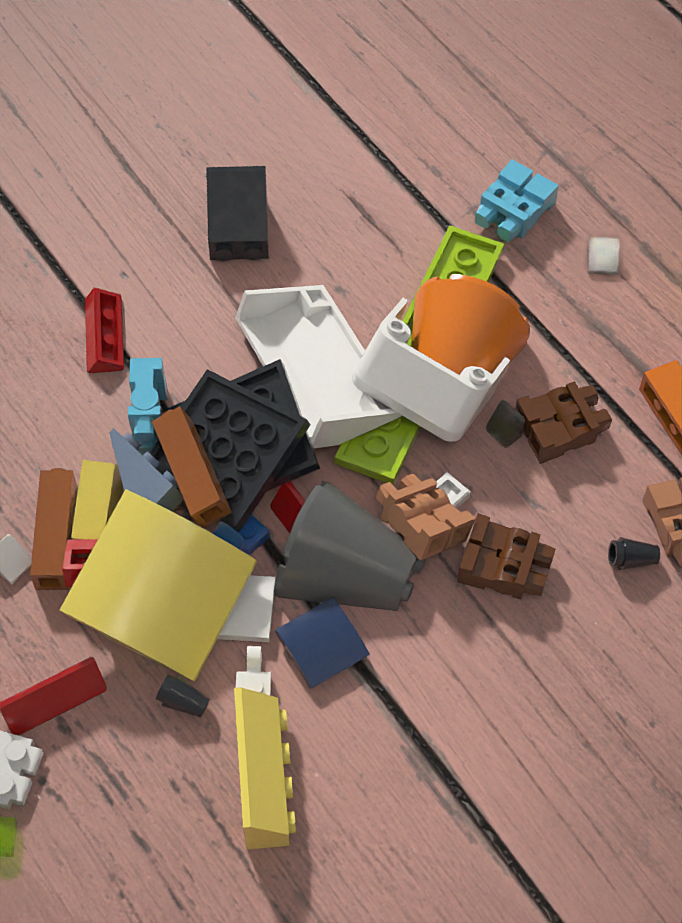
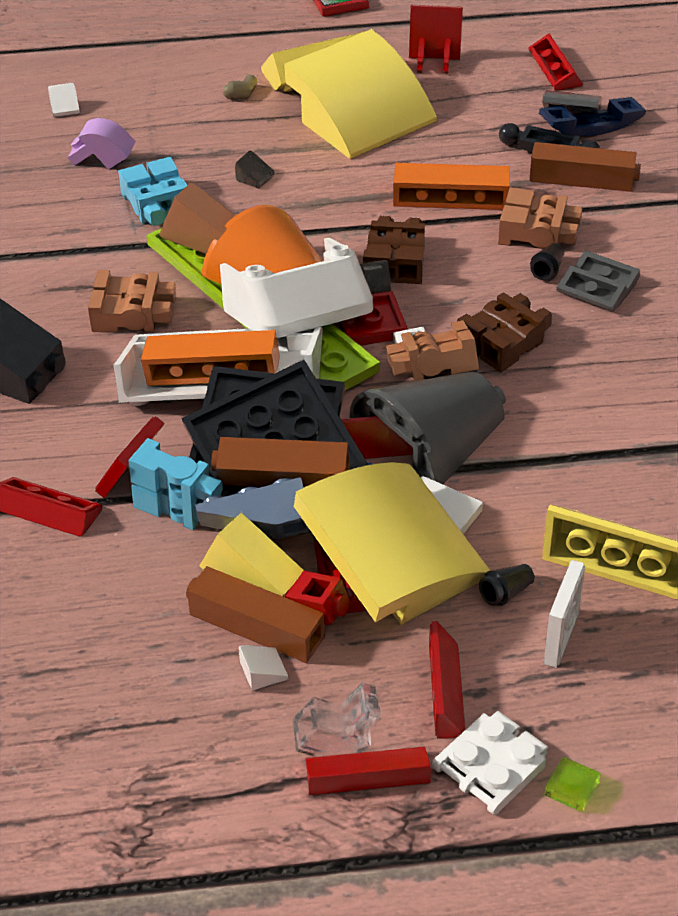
camera: 60 degrees left, 15 degrees down
(150, 754) = (564, 613): none -> white tile
(169, 356) = (121, 463): none -> red tile
(254, 678) = (520, 534): white plate -> none
(308, 353) = (192, 356): none -> orange brick
(322, 642) = (509, 469): dark blue slope -> none
(358, 259) = (130, 302): none -> nougat hips
(463, 456) = (378, 324): none -> red tile
(470, 248) = (195, 219): none -> nougat slope
(549, 127) = (104, 140): none -> lavender brick
(600, 67) = (63, 99): none -> white slope
(635, 611) = (599, 280): none -> dark grey slope

